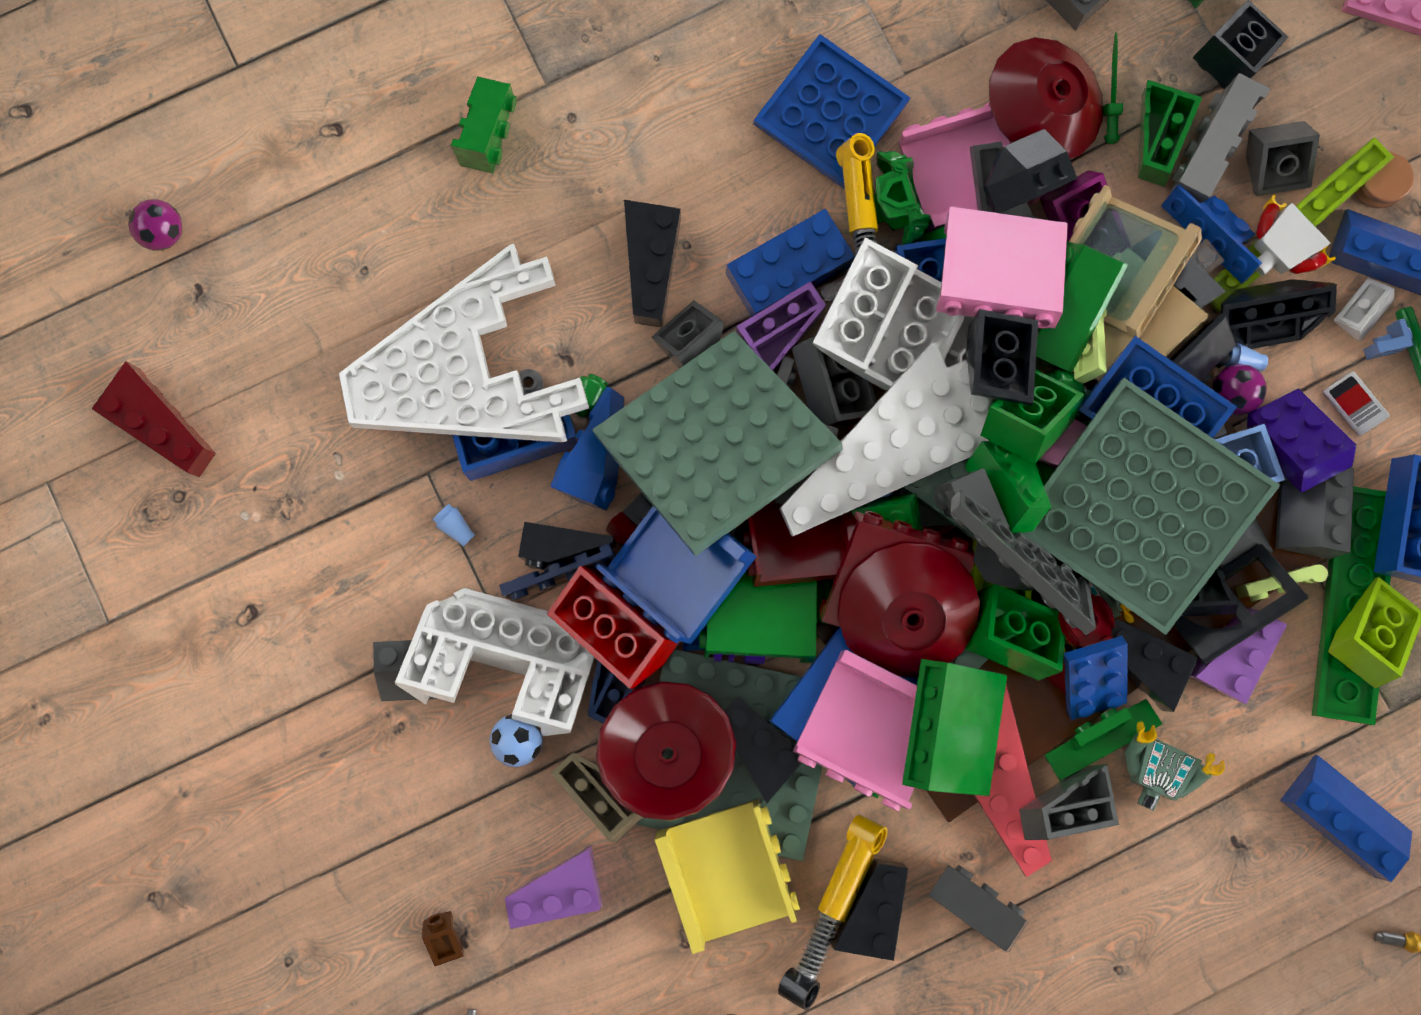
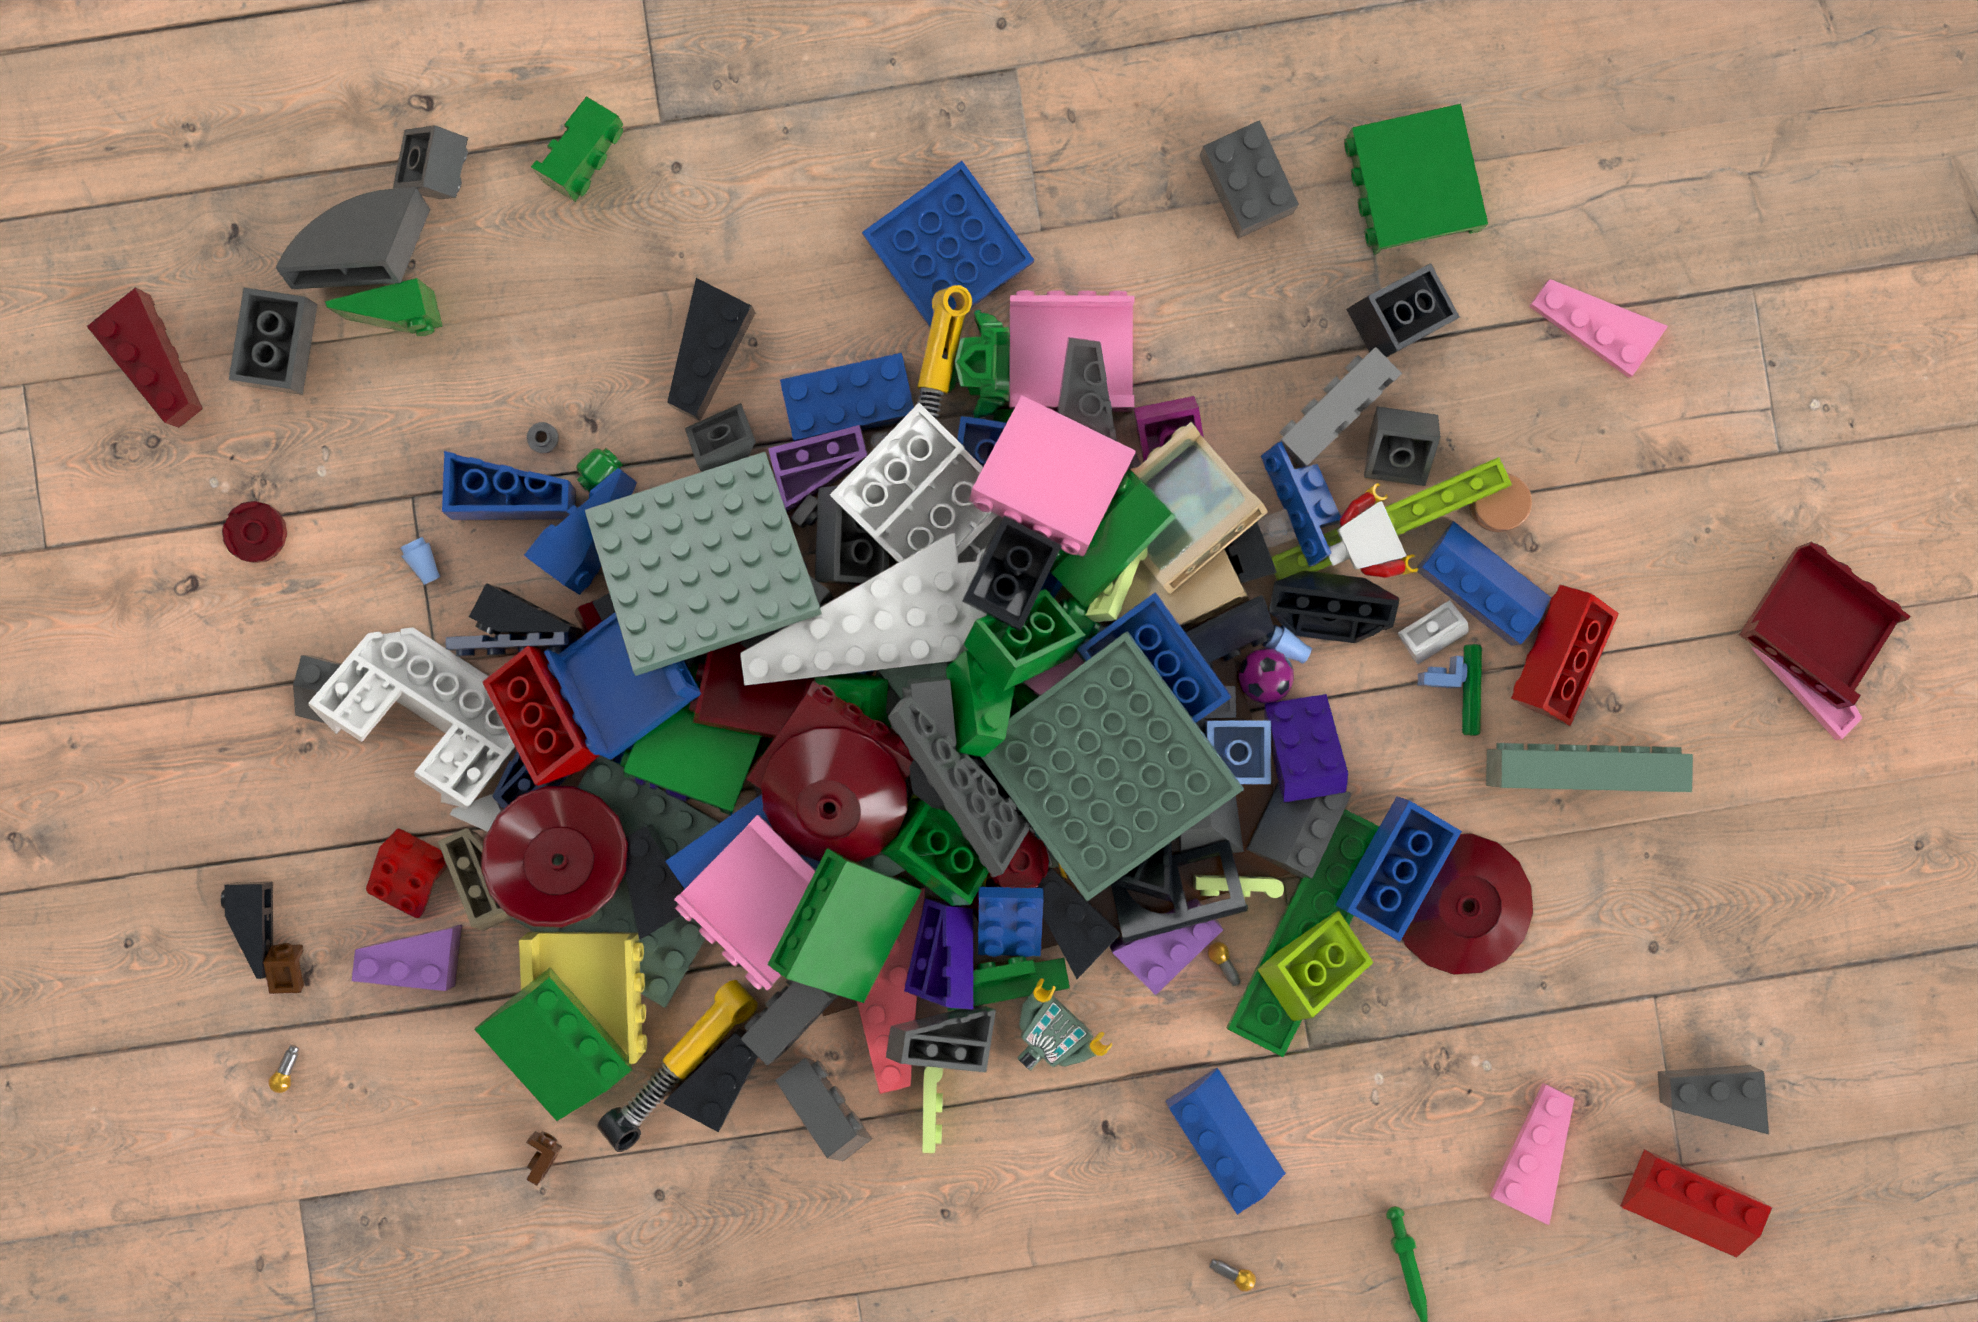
camera: 20 degrees right, 5 degrees up
(155, 224) = (207, 151): magenta piece -> none
(263, 371) = (273, 341): none -> dark grey brick
(295, 547) = (254, 532): none -> dark red tile
(313, 260) = (357, 241): none -> dark grey brick
(356, 176) = (431, 161): none -> dark grey slope
(362, 308) = (398, 306): none -> green slope
(397, 902) = (250, 917): none -> black slope
(436, 372) = (447, 394): white wing -> none
(515, 742) = (413, 800): light blue piece -> none
(527, 813) = (405, 872): none -> red bracket
(583, 734) = (480, 813): none -> white slope
(717, 929) = (554, 1045): none -> green slope
(923, 831) = (786, 1019): none -> dark grey brick
(1027, 100) = (1149, 314): dark red dish -> none
(1027, 171) = (1120, 382): black wedge -> none
(1045, 730) = (943, 956): none -> dark purple wedge
(1075, 873) = (931, 1104): none -> yellowish green plate
(1113, 110) = (1244, 338): green sword -> none
(1163, 129) = (1288, 378): green wedge -> none
(1285, 653) = (1219, 953): none -> piece
(1356, 403) = (1385, 727): slope -> none

